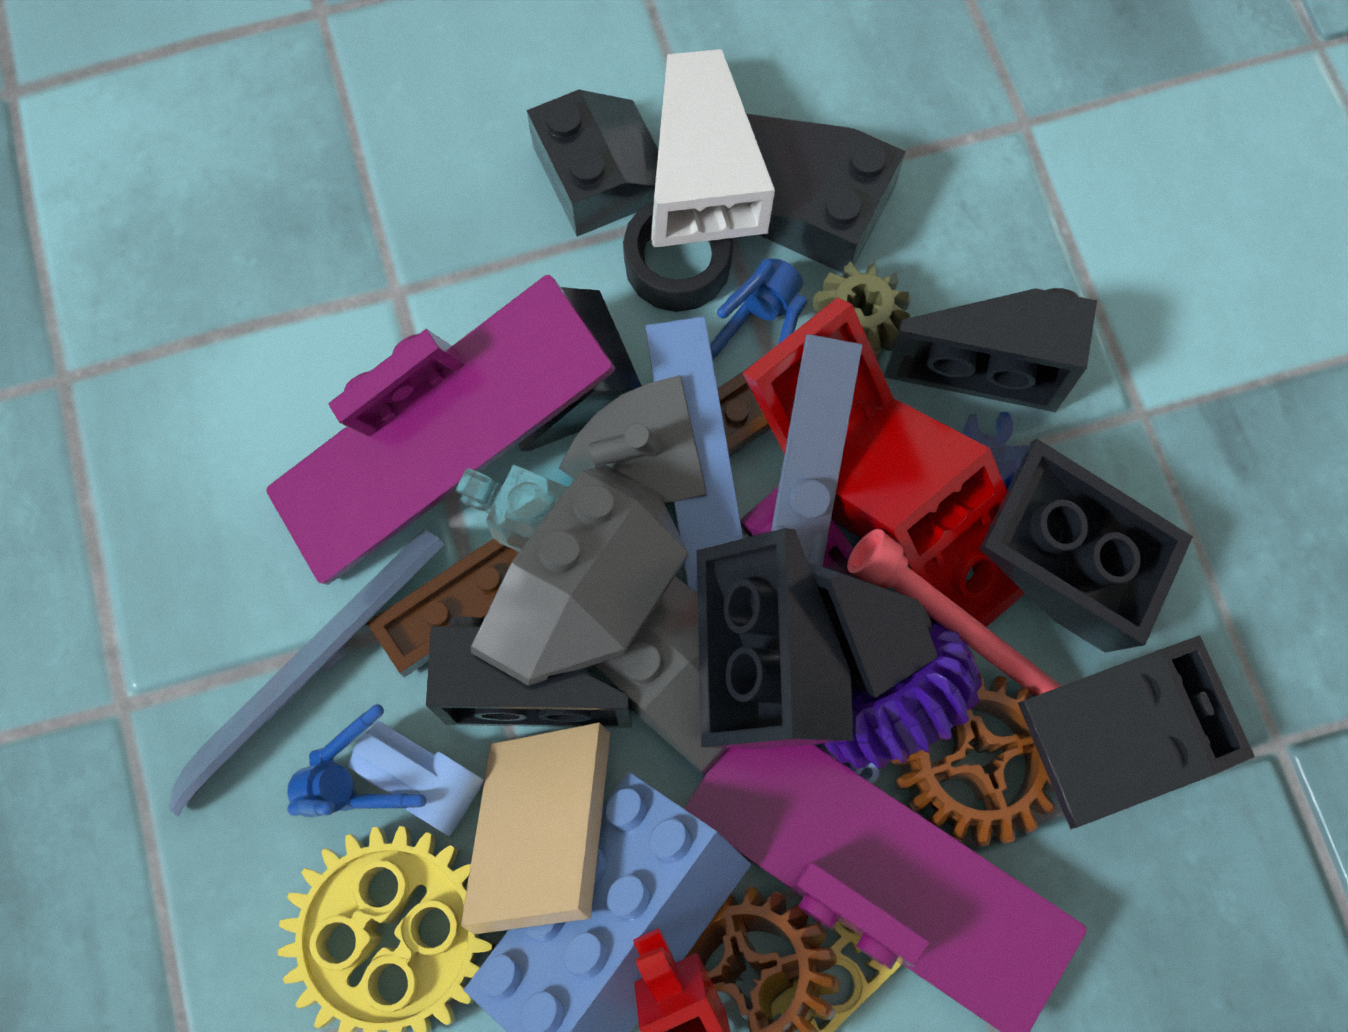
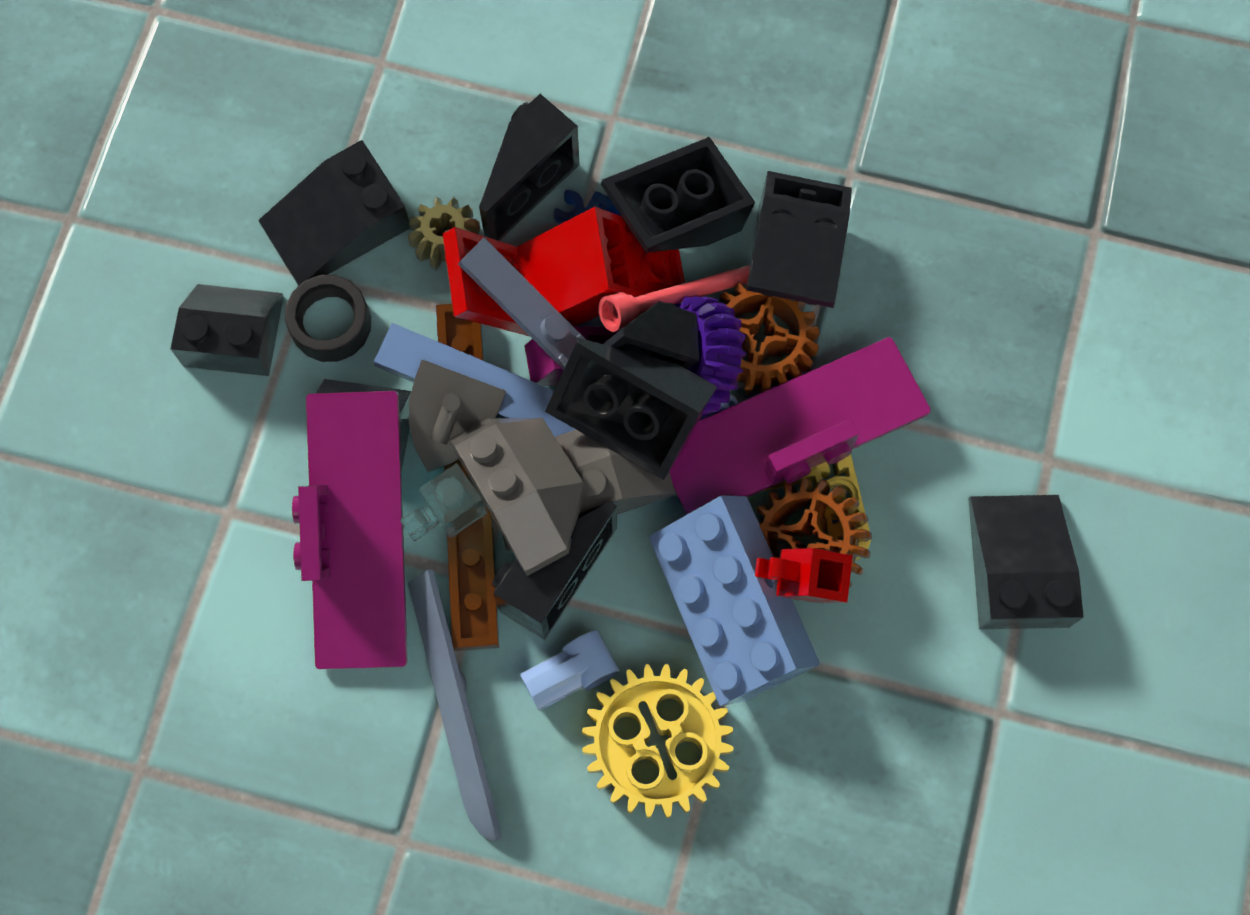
camera: 60 degrees left, 0 degrees up
(329, 787) = (544, 727): blue plant -> none
(538, 831) = (651, 607): tan tile -> none
(708, 159) = (279, 257): white slope -> none
(765, 294) = (397, 281): blue plant -> none

